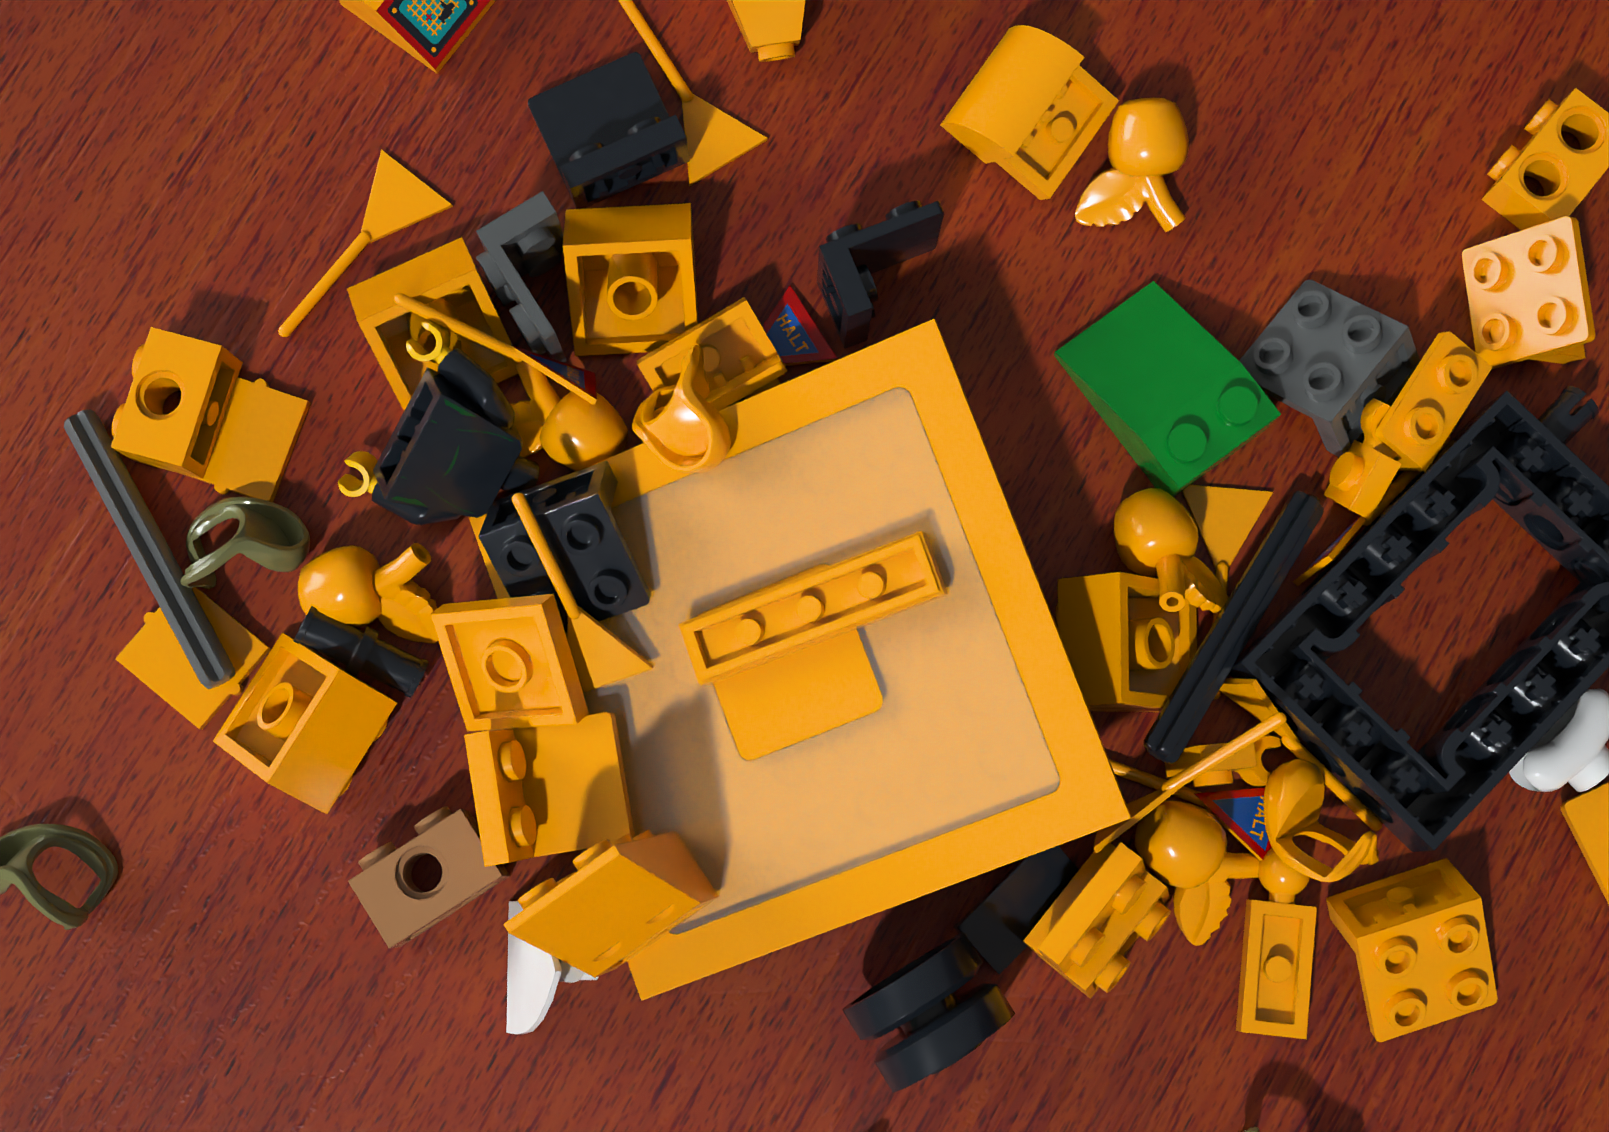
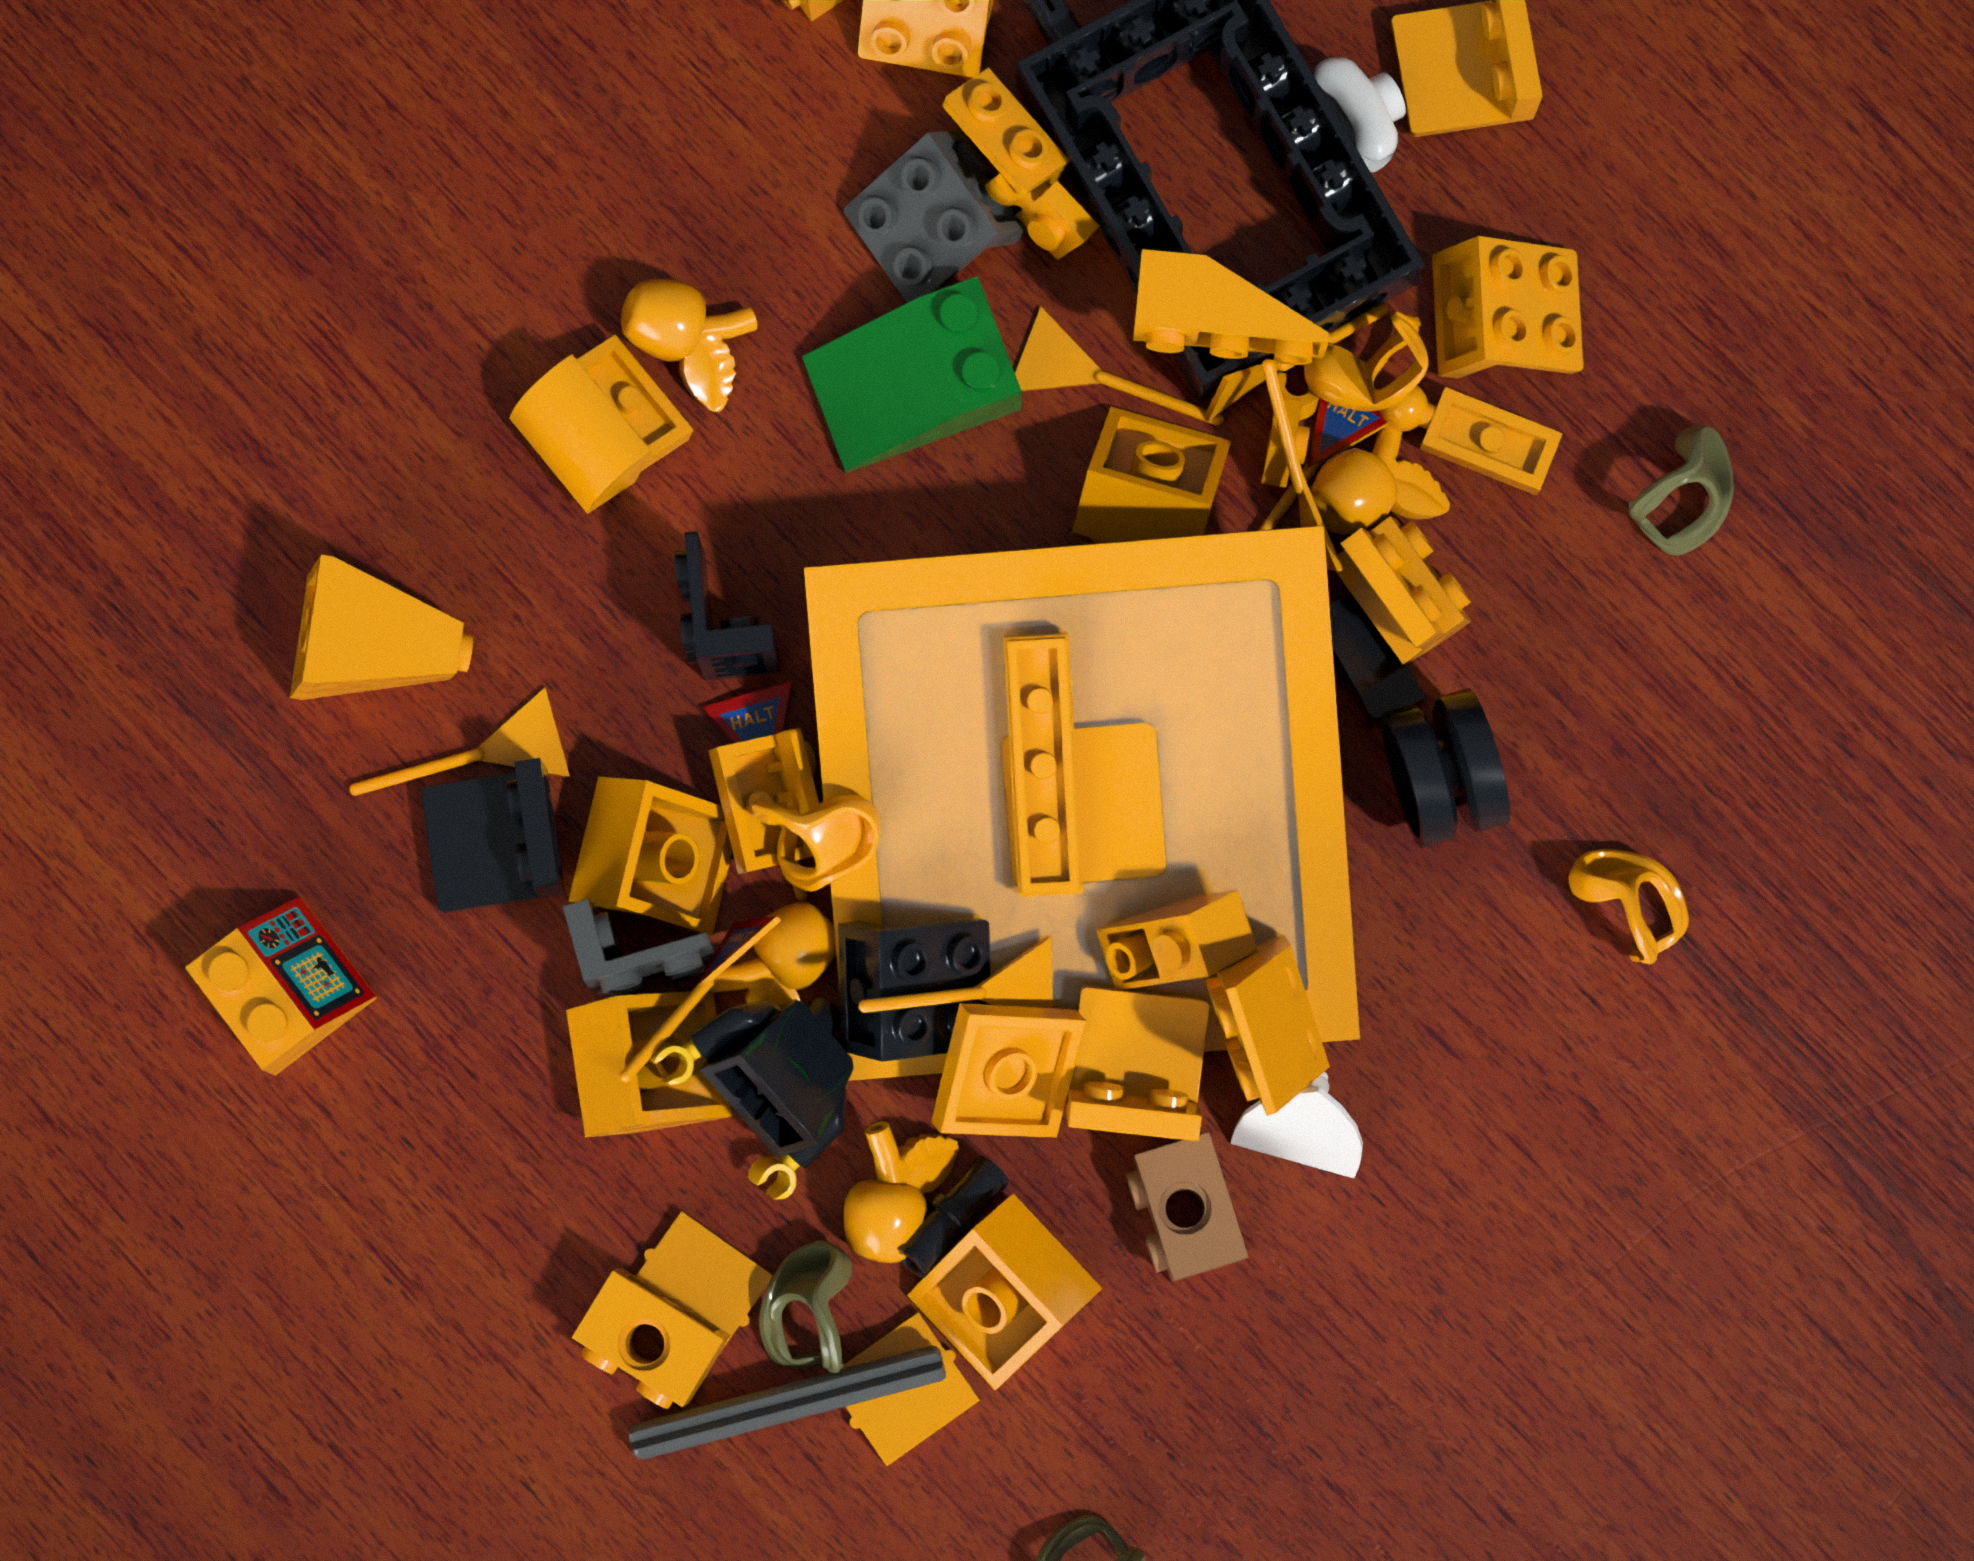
camera: 70 degrees left, 0 degrees up
(393, 204) = (502, 1074): light orange piece -> none
(678, 793) = (1177, 941): none -> light orange slope
(1159, 540) = (1059, 425): light orange piece -> none
(1233, 627) = (1163, 382): black axle -> none
(1321, 639) = (1206, 305): none -> light orange slope
(1334, 549) = (1118, 269): light orange piece -> none

